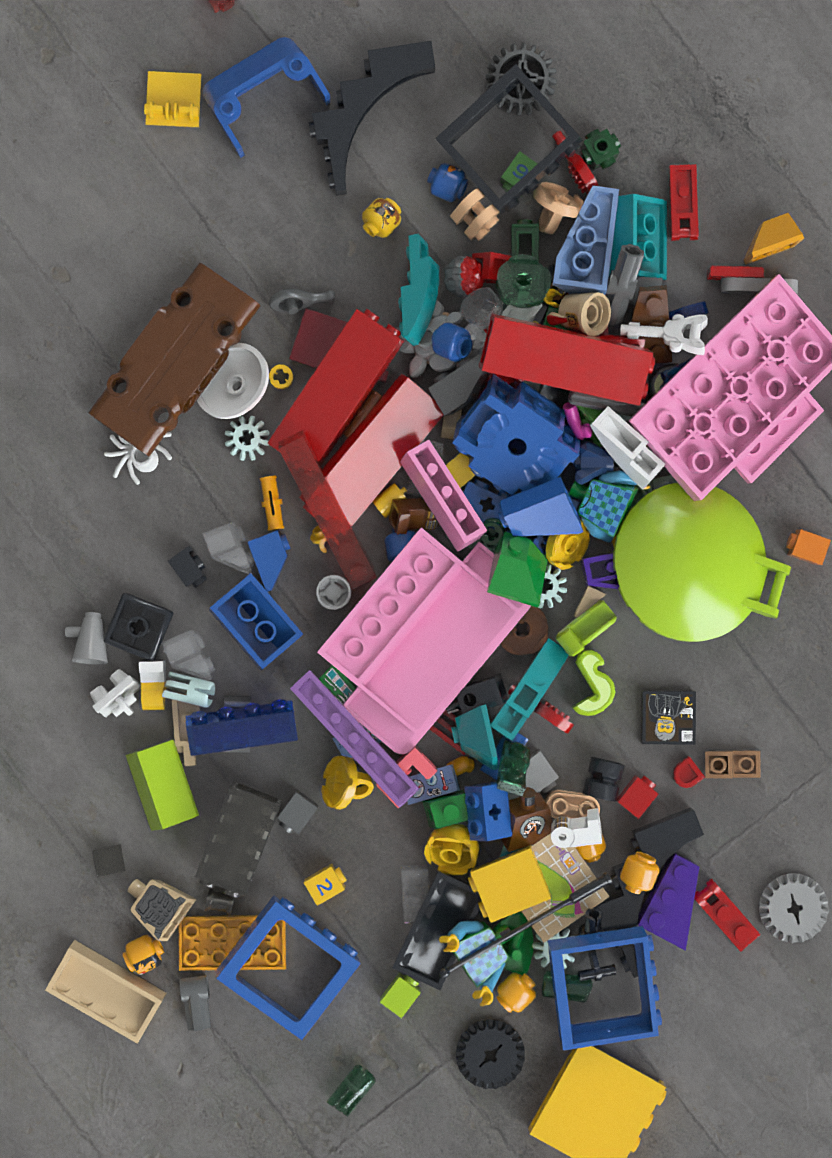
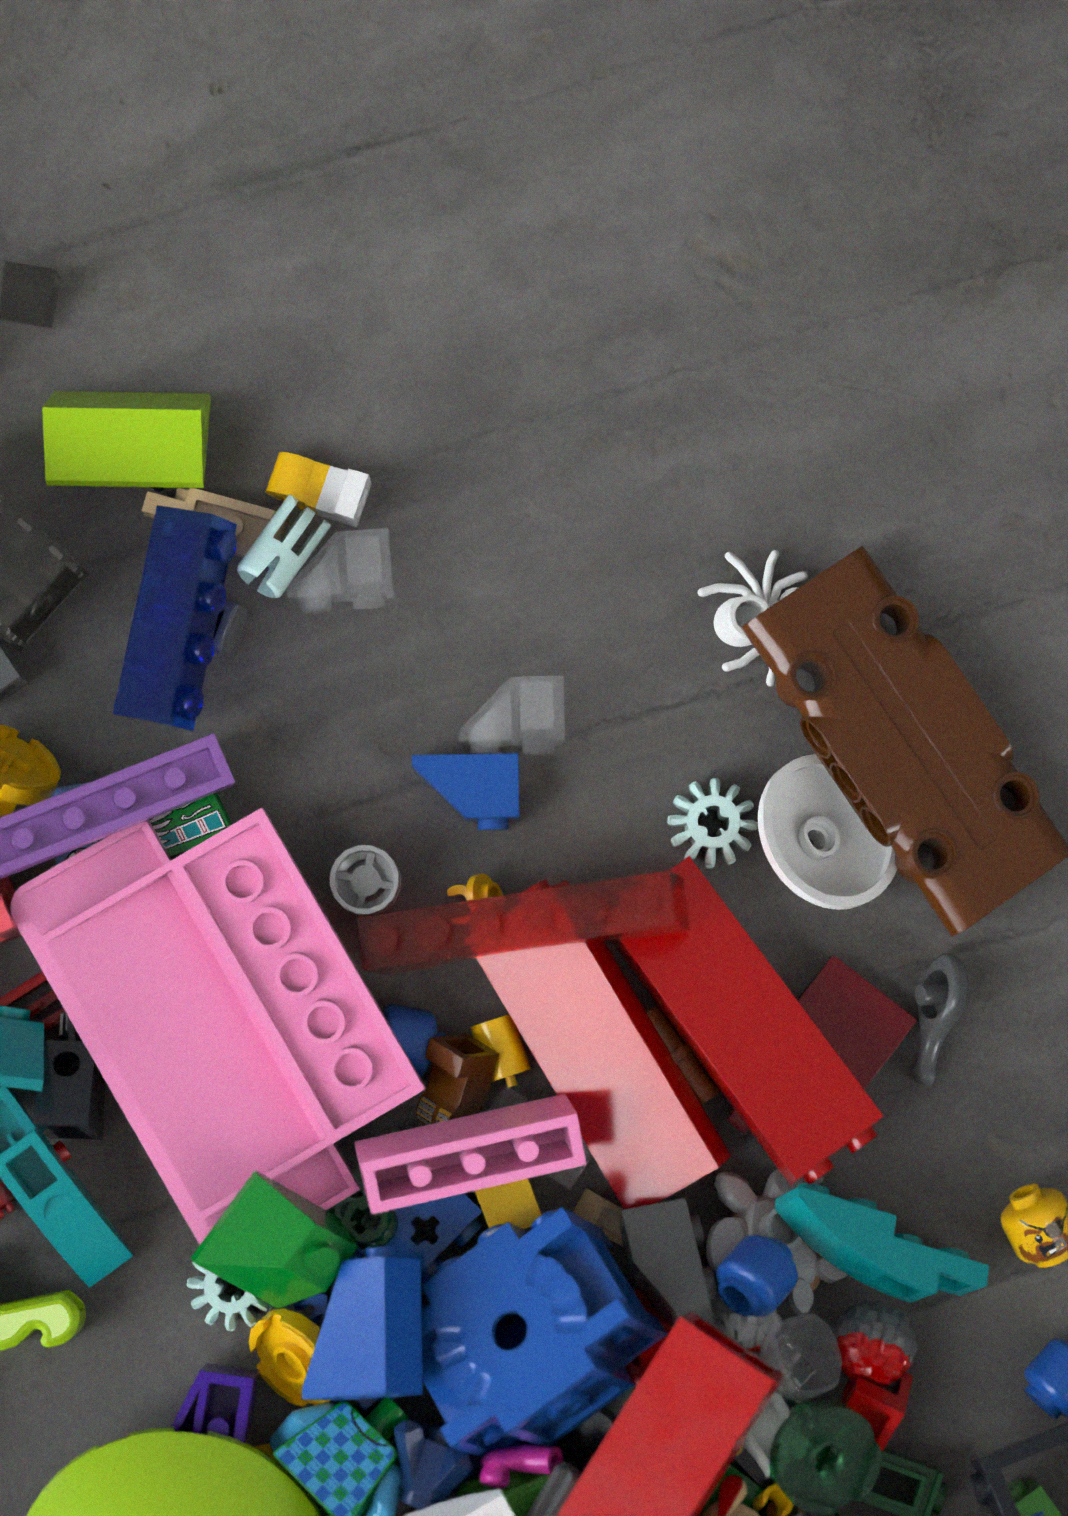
camera: 115 degrees right, 5 degrees down
(90, 644) = (440, 404): light grey piece -> none
(118, 698) = (315, 416): white hips -> none
(123, 635) = (433, 465): black brick -> none
(188, 567) = (509, 629): black brick -> none
(255, 621) = (363, 716): blue slope -> none
(273, 521) = (538, 820): light orange pin -> none
(286, 370) = (813, 941): yellow bush -> none
(479, 225) = (961, 1411): light nougat brick -> none
(533, 640) = (138, 1224): reddish brown plate -> none
(586, 628) = (124, 1334): lime animal -> none
(588, 599) = (177, 1358): tan piece -> none

